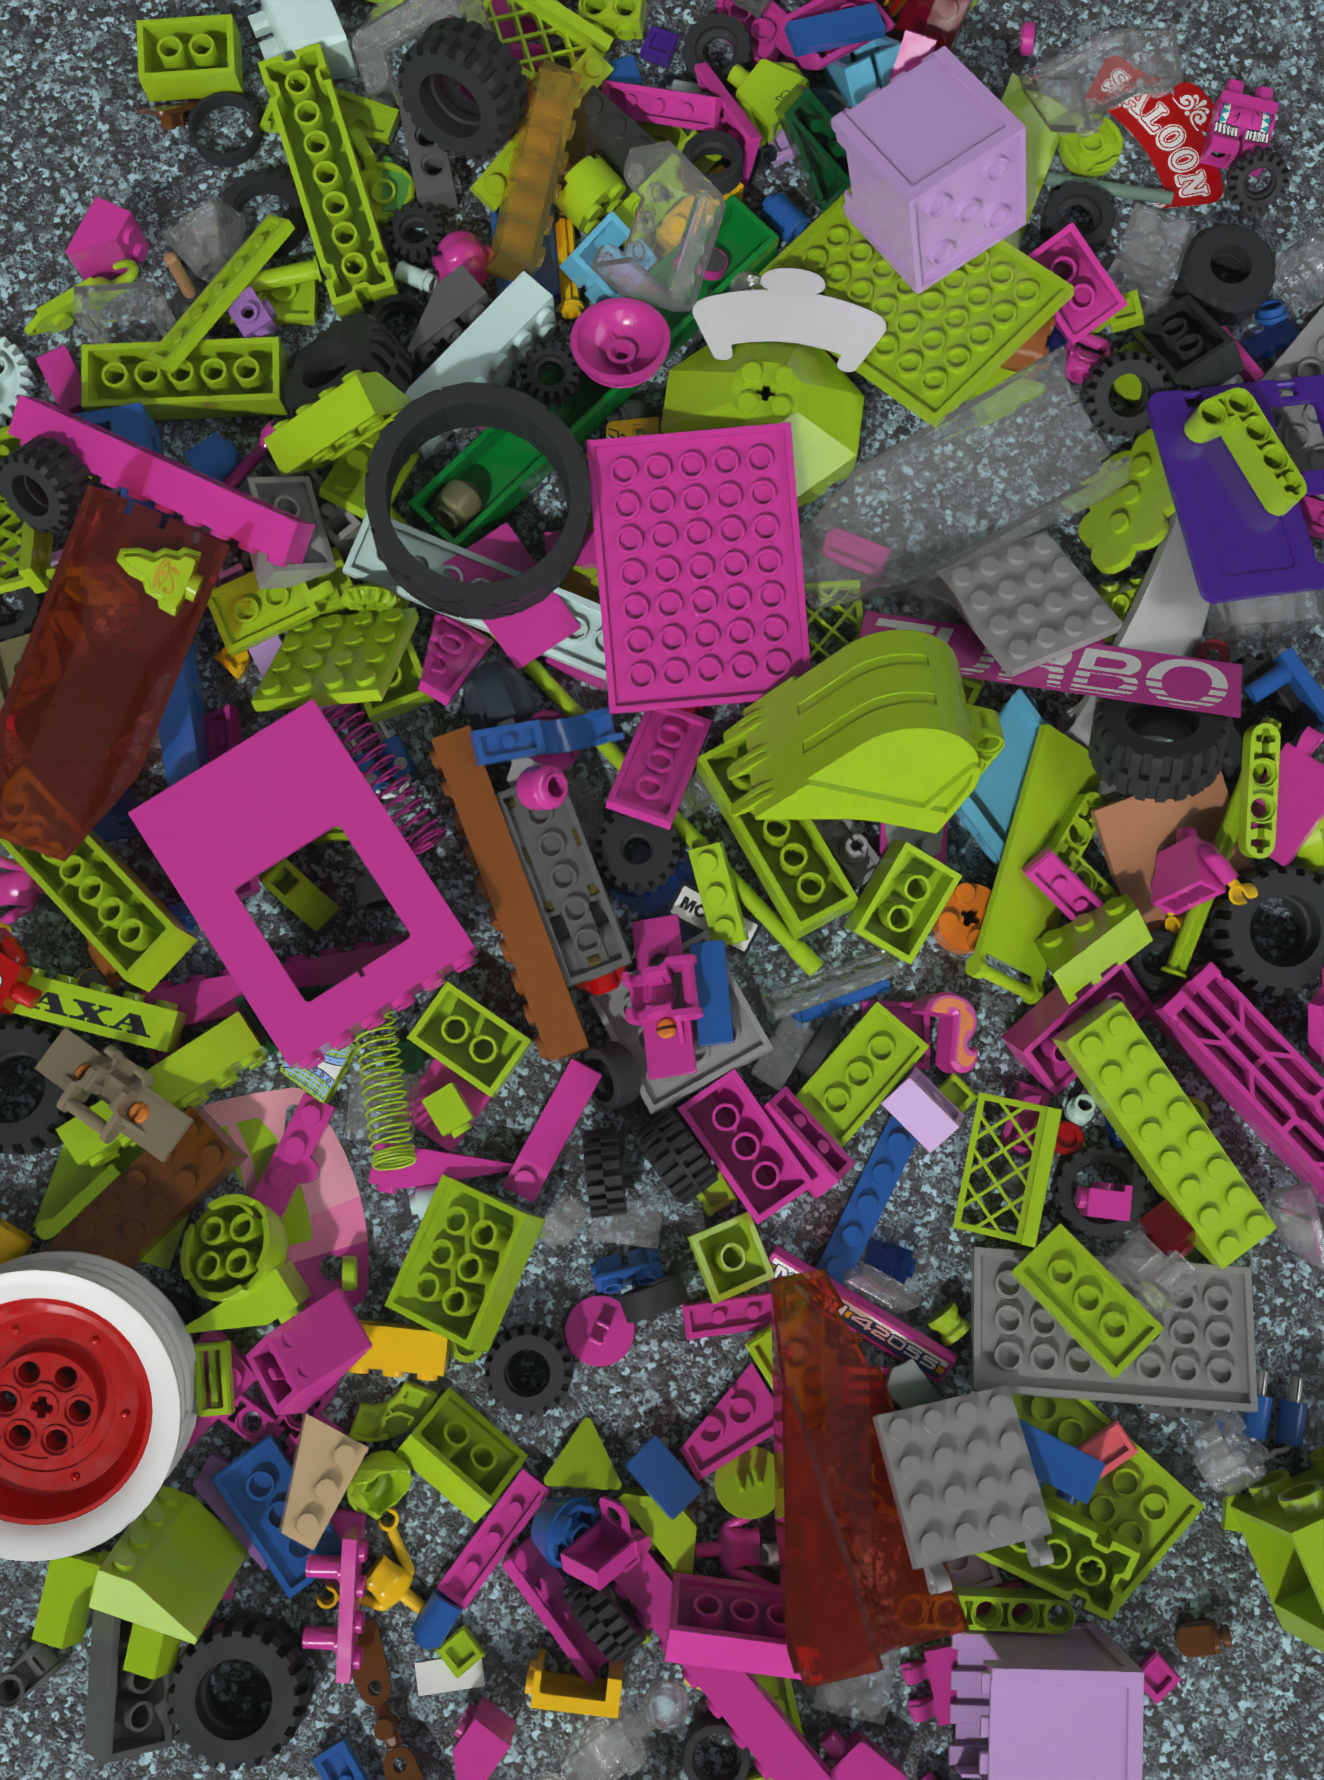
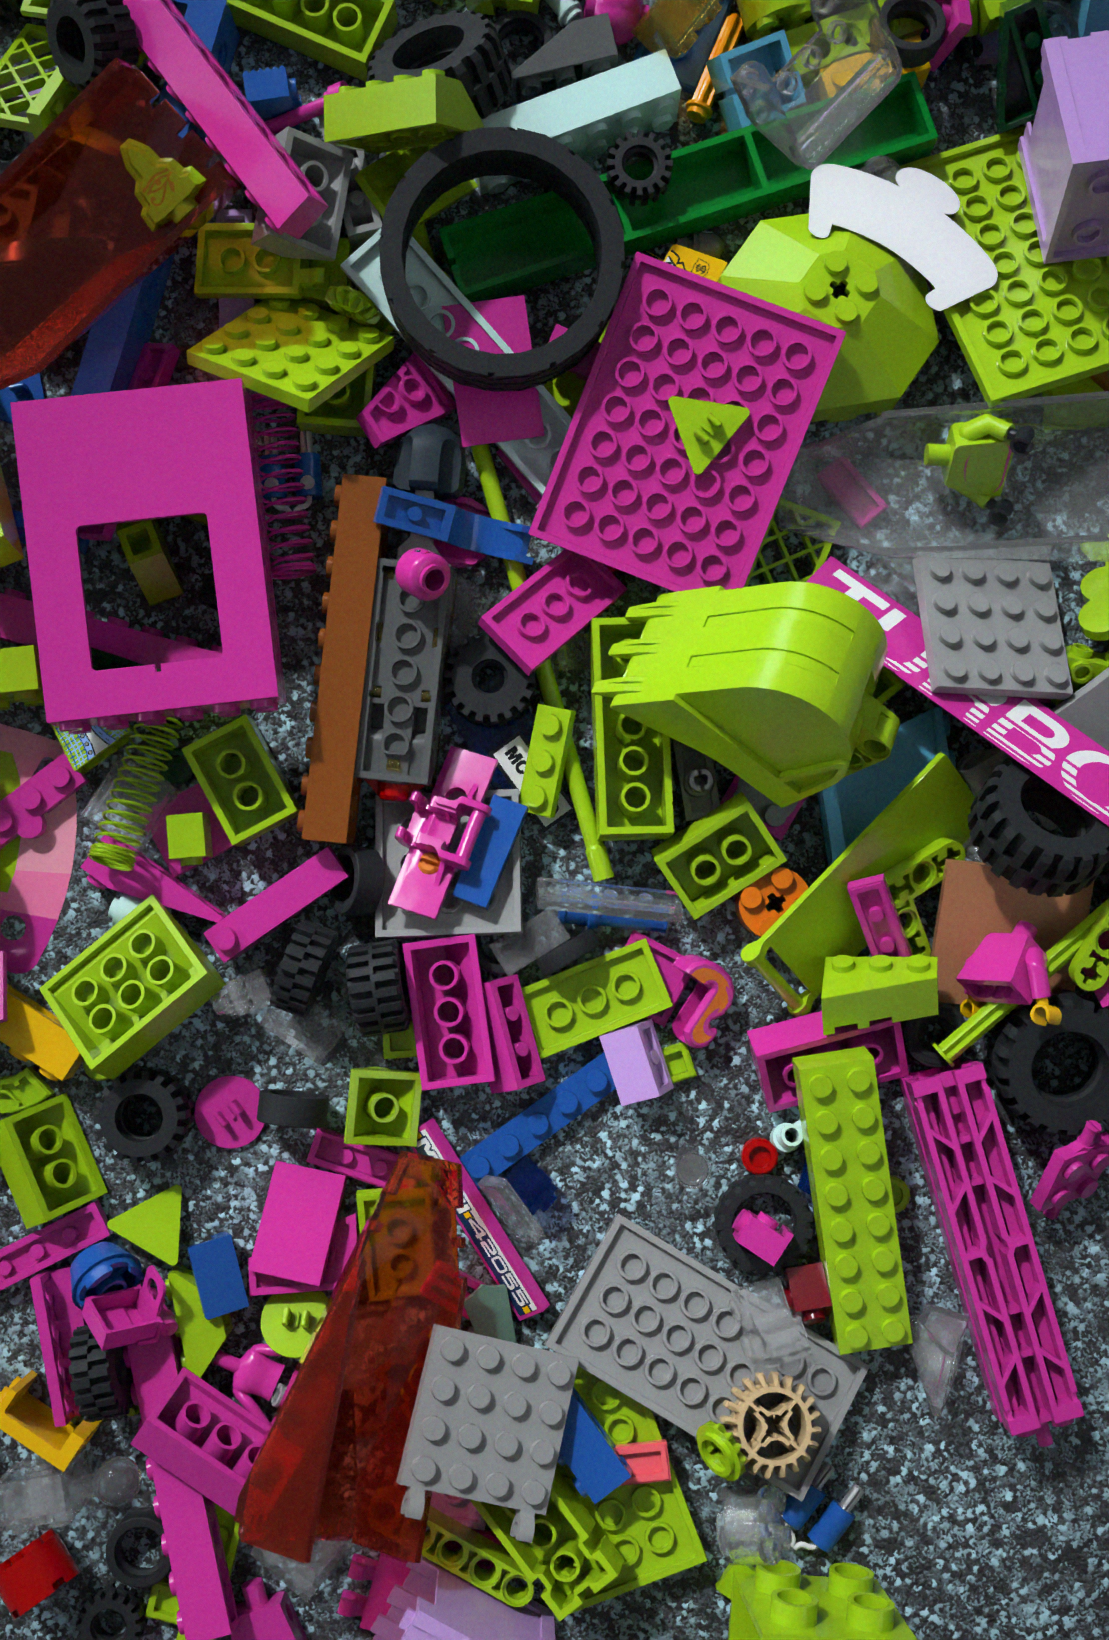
camera: 30 degrees right, 5 degrees up
(237, 664) = (200, 308): yellow tile -> none
(349, 1273) = (24, 941): lime tile -> none
(457, 504) = (487, 253): olive head -> none
(612, 1276) = (266, 1066): blue hinge -> none
(617, 331) = (726, 155): dark pink hat -> none
(707, 1396) = (298, 1223): none -> dark pink tile
(714, 555) = (705, 427): none -> lime piece
(716, 266) = (862, 136): tile -> none
(783, 216) = (956, 119): blue brick -> none
(946, 473) = (978, 460): none -> lime torso
(949, 1324) = (557, 1272): lime wheel -> none
(1026, 1119) = (729, 1119): dark pink tile -> none
(1037, 1177) = (714, 1176): lime fence -> none
(1087, 1301) = (695, 1318): lime plate -> none
(1178, 1410) = (720, 1451): none -> lime gear
(1193, 1373) = (780, 1413): none -> tan gear

